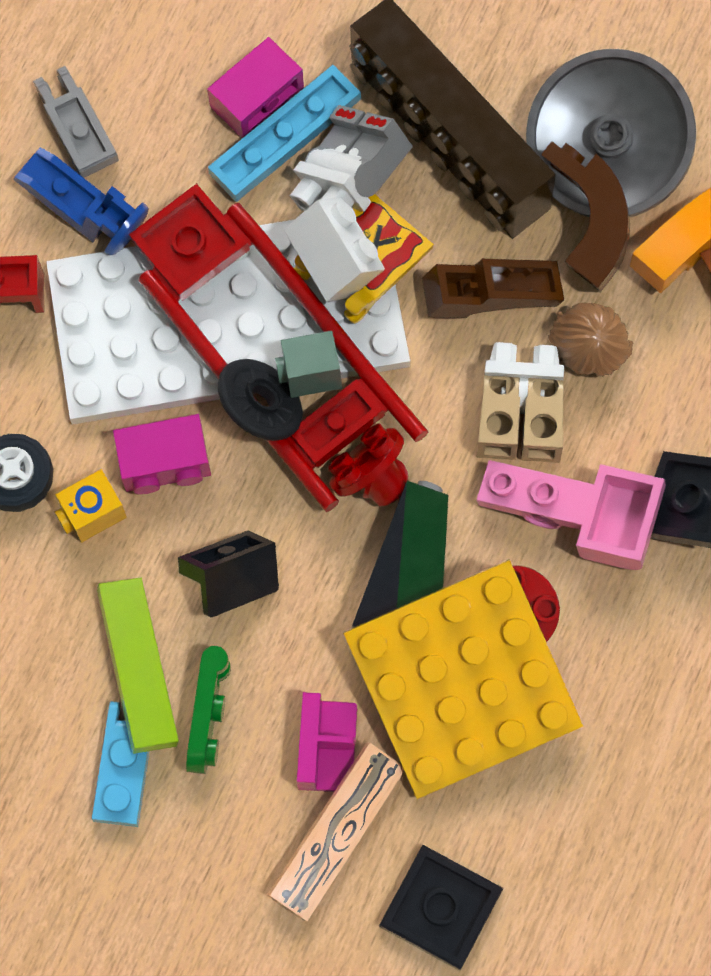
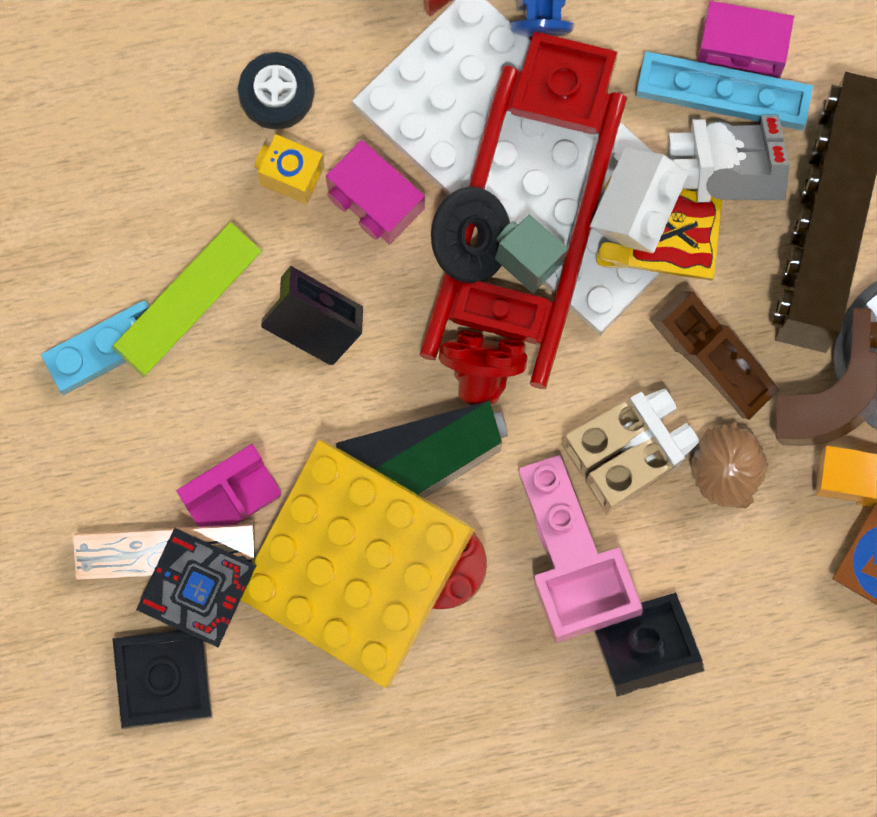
camera: 50 degrees right, 5 degrees up
(207, 709) = (189, 380): green plate -> none
(389, 823) = (196, 587): none -> tile

